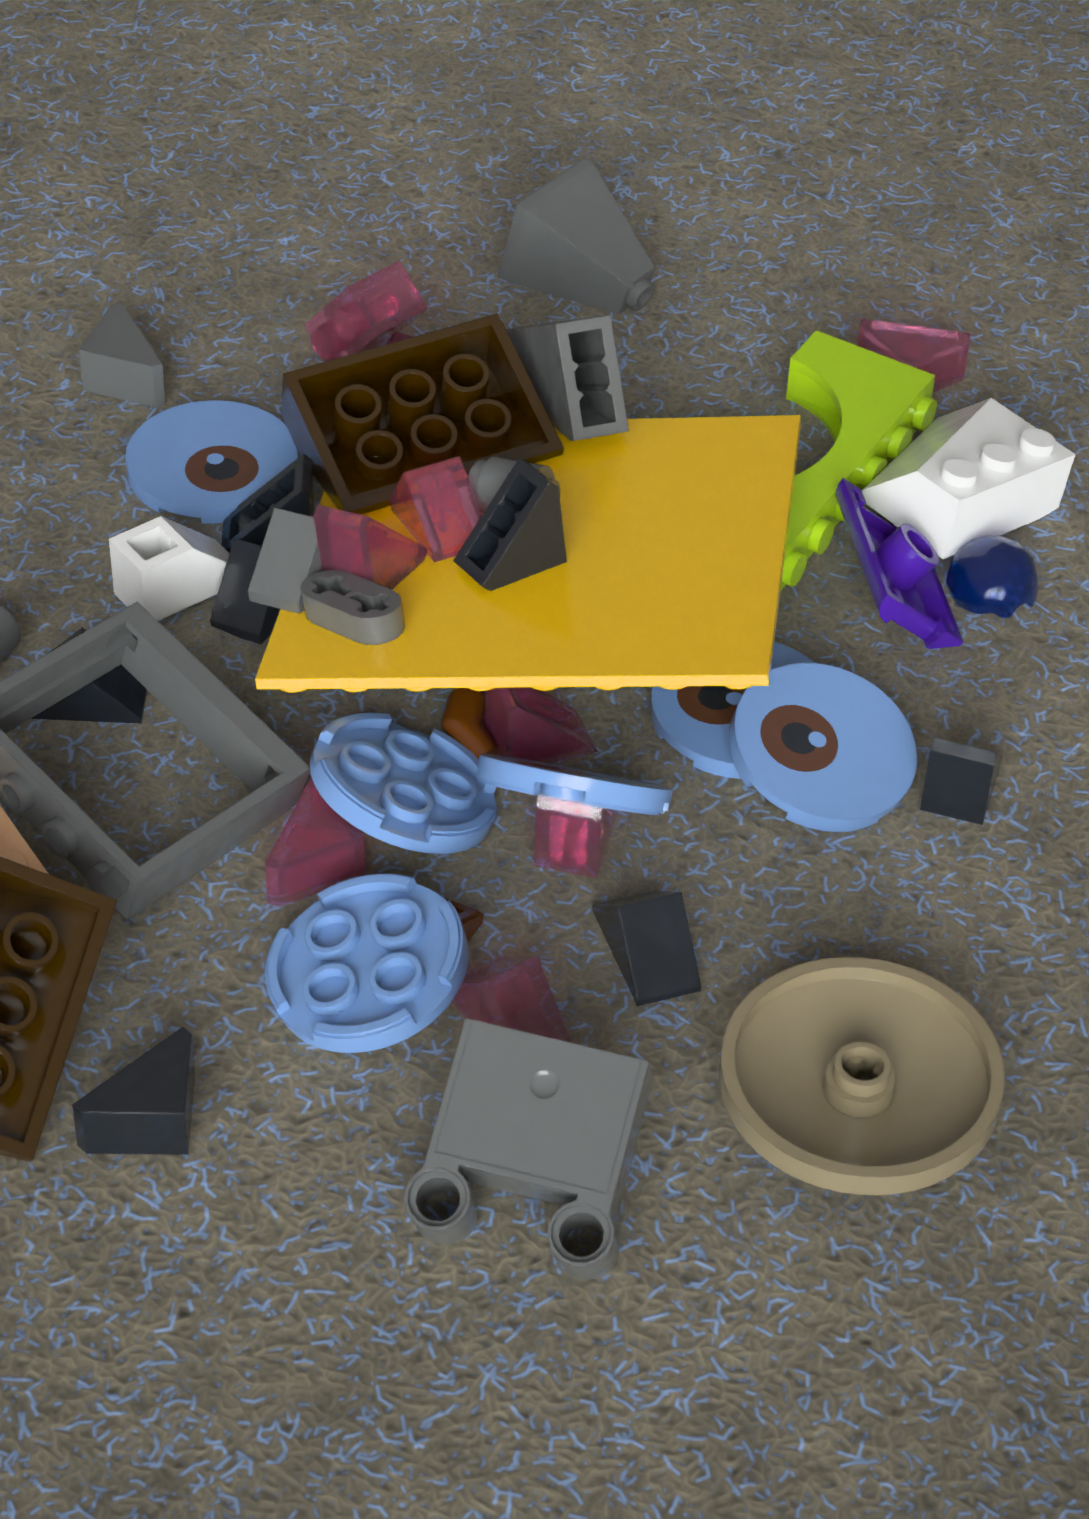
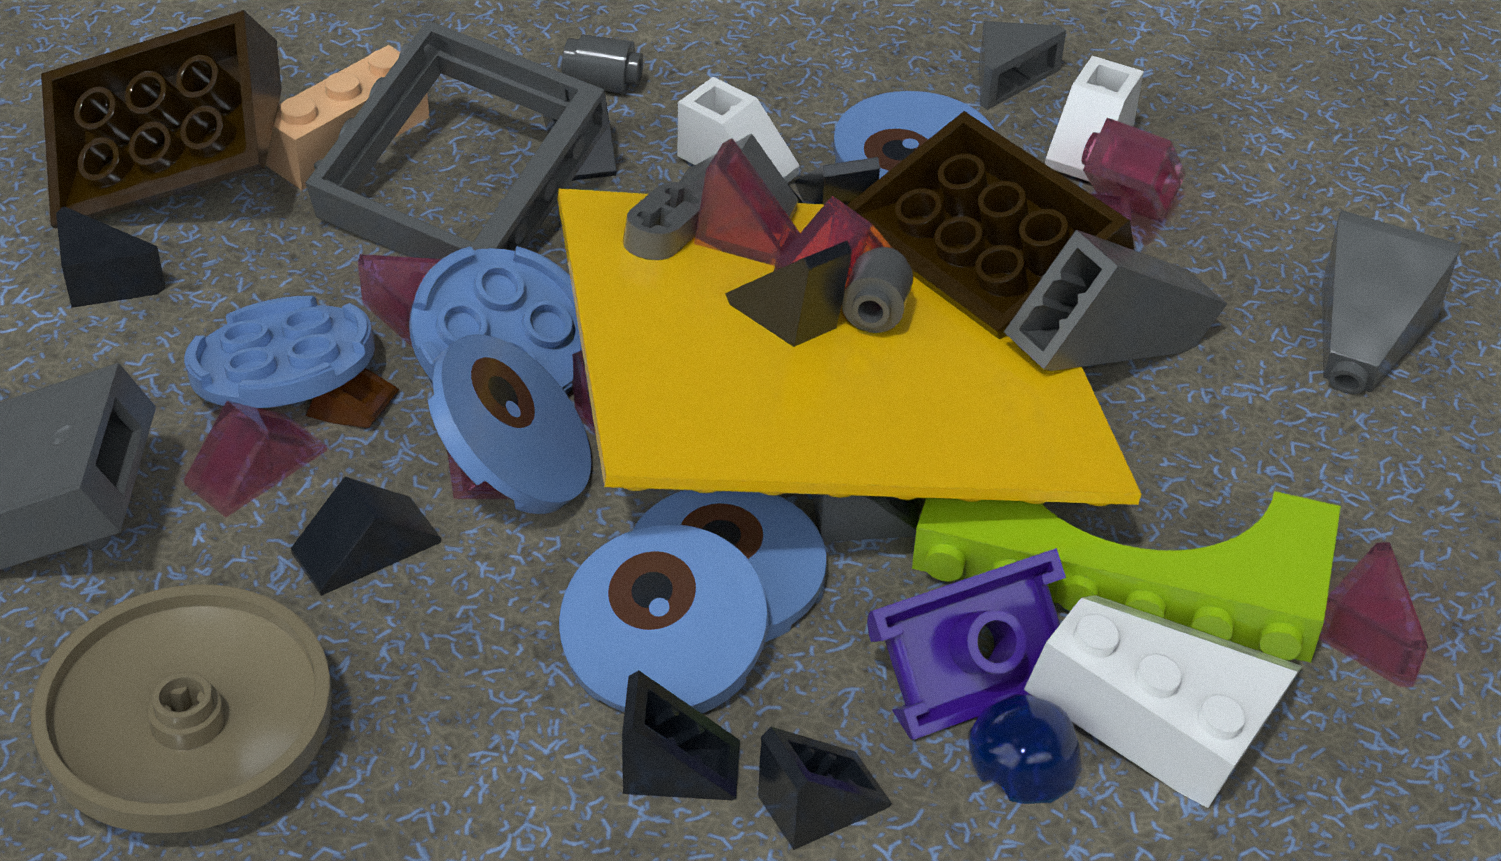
camera: 75 degrees right, 0 degrees up
(252, 326) = (1097, 93): none -> white slope
(1024, 702) = (814, 786): none -> black slope

